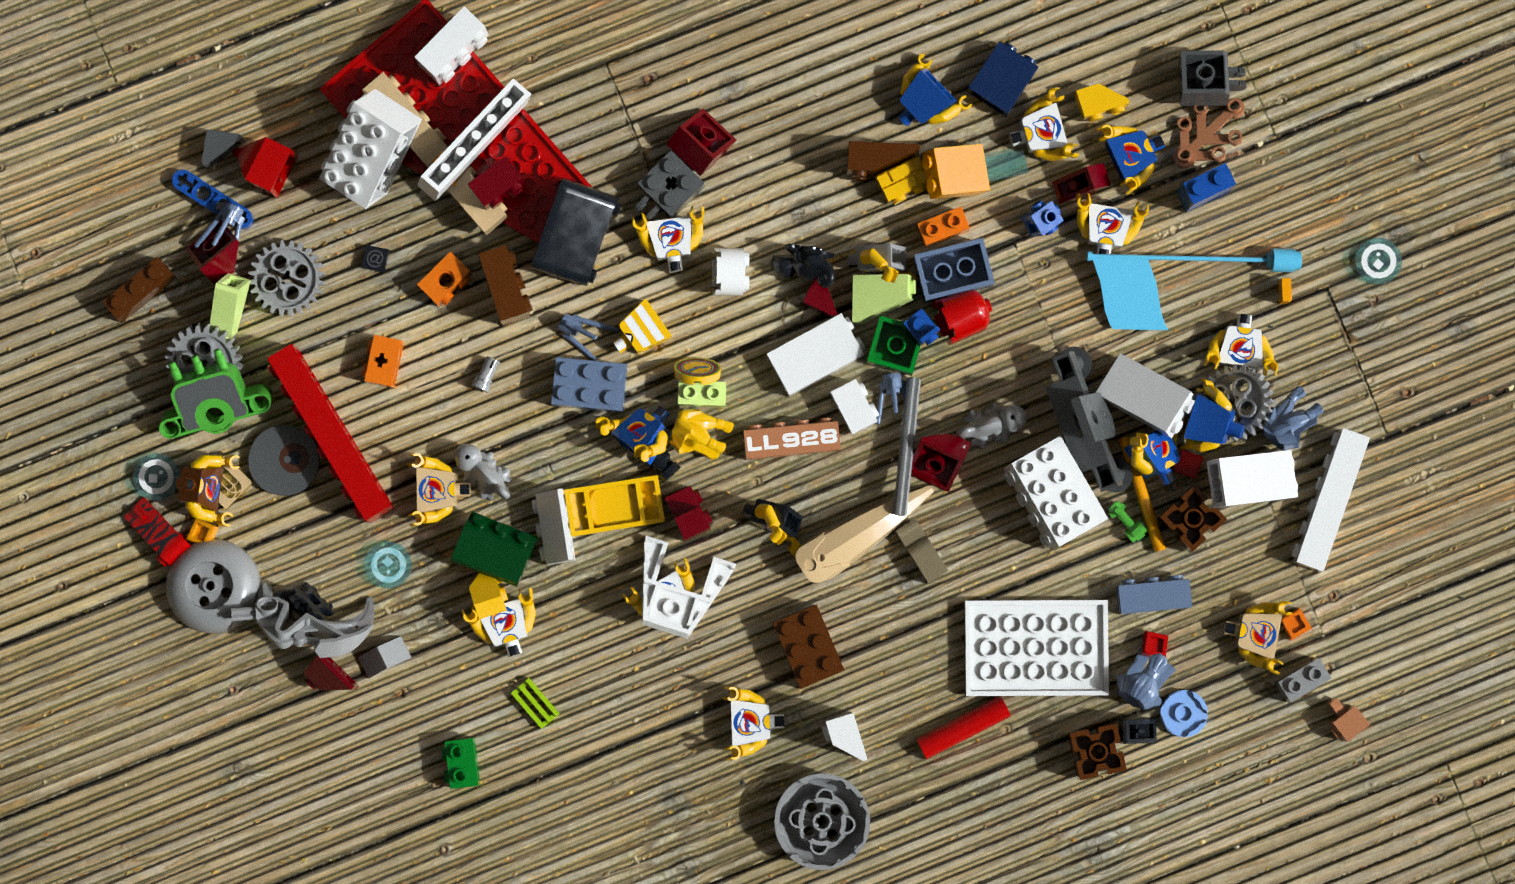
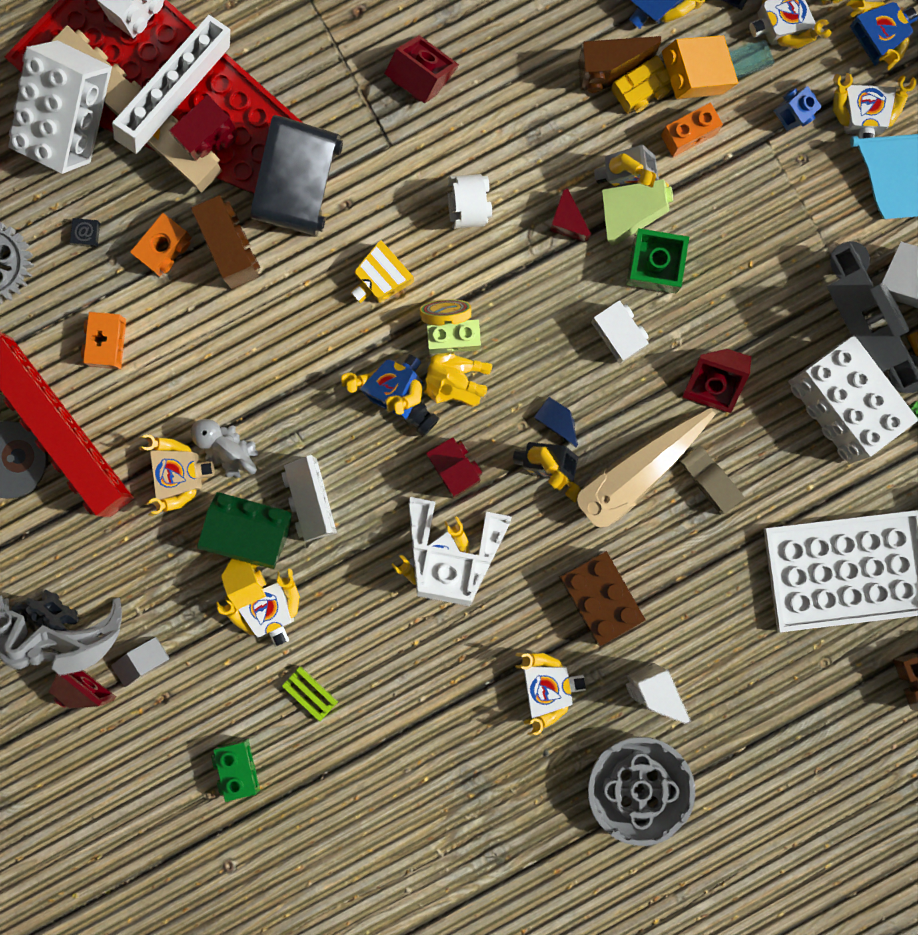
camera: 10 degrees left, 0 degrees up
(388, 565) = (133, 560): clear light blue tile -> none
(483, 379) = (215, 348): light grey pin -> none
(570, 326) = (305, 280): sand blue plant -> none
(589, 385) = (330, 340): sand blue brick -> none
(614, 506) = (372, 468): yellow slope -> none
(655, 187) = (396, 133): dark grey hinge -> none
(671, 237) = (401, 173): torso -> none
(788, 480) = (558, 419): none -> dark blue slope
(792, 440) = (556, 375): nougat brick -> none
(806, 263) = (551, 183): black animal -> none
(816, 354) = (571, 280): white brick -> none
(891, 384) = (659, 305): sand blue plant -> none
(906, 446) = (682, 369): light grey axle -> none
(922, 328) = (686, 235): blue bracket -> none
(953, 270) = (710, 173): sand blue brick -> none
(962, 315) = (724, 220): red cylinder -> none
(963, 727) = (779, 666): red brick -> none
(993, 424) = (772, 334): light grey animal -> none
(1083, 181) = (840, 60): dark red slope -> none

